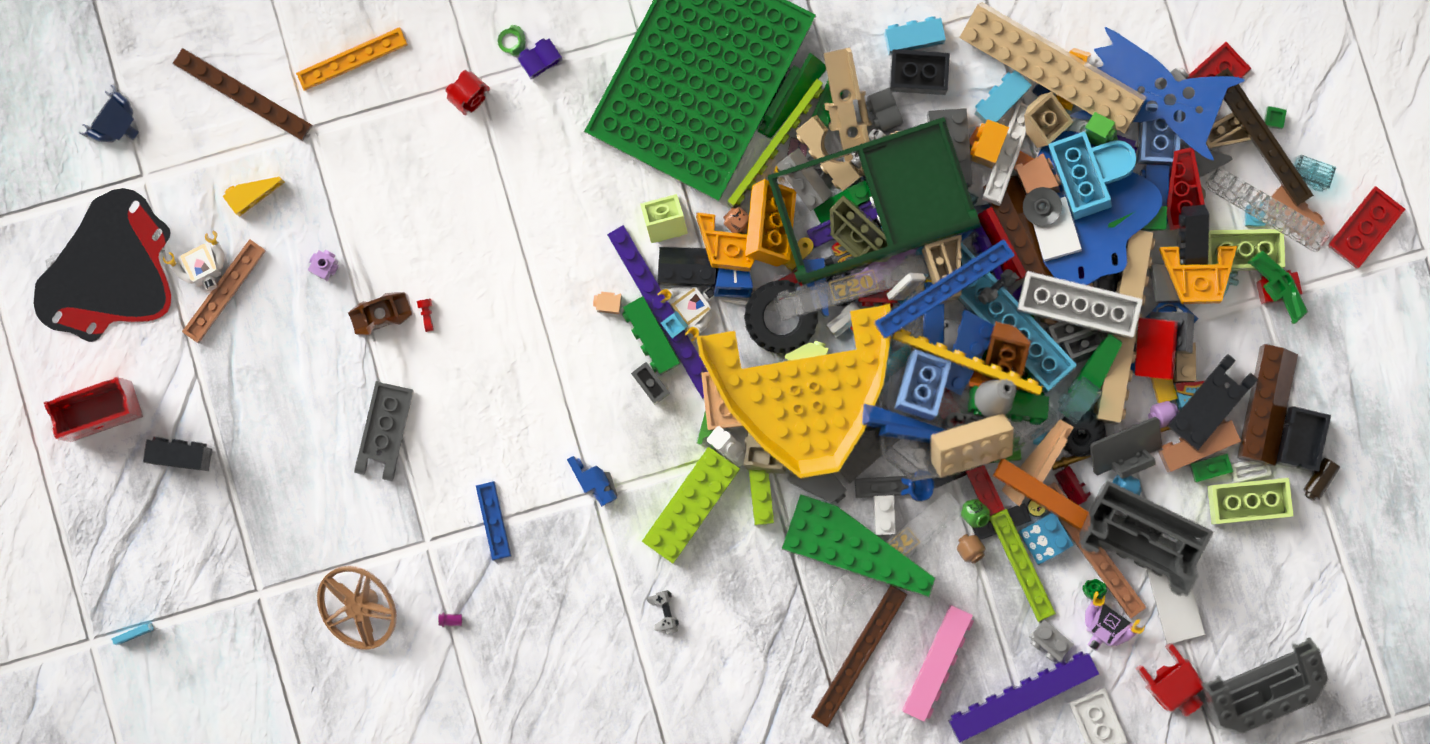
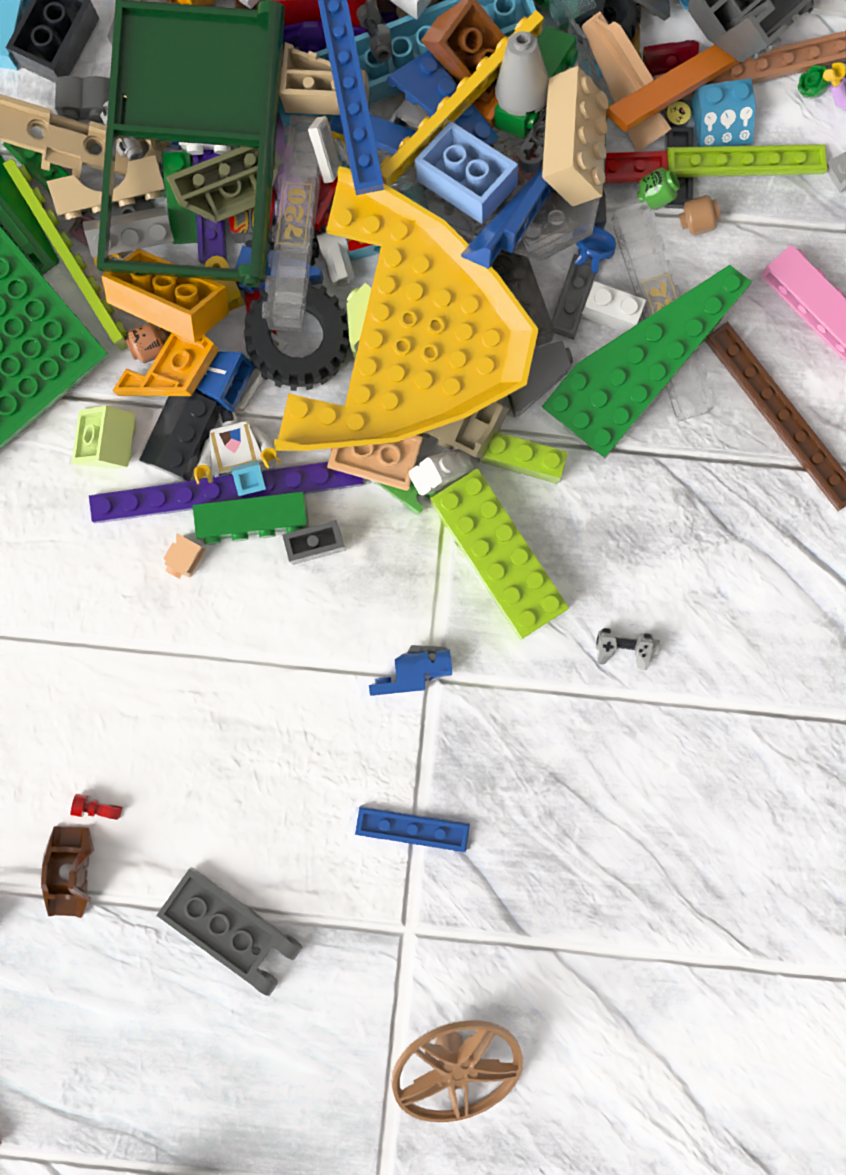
camera: 65 degrees left, 0 degrees up
(449, 620) = (523, 943): magenta pin -> none

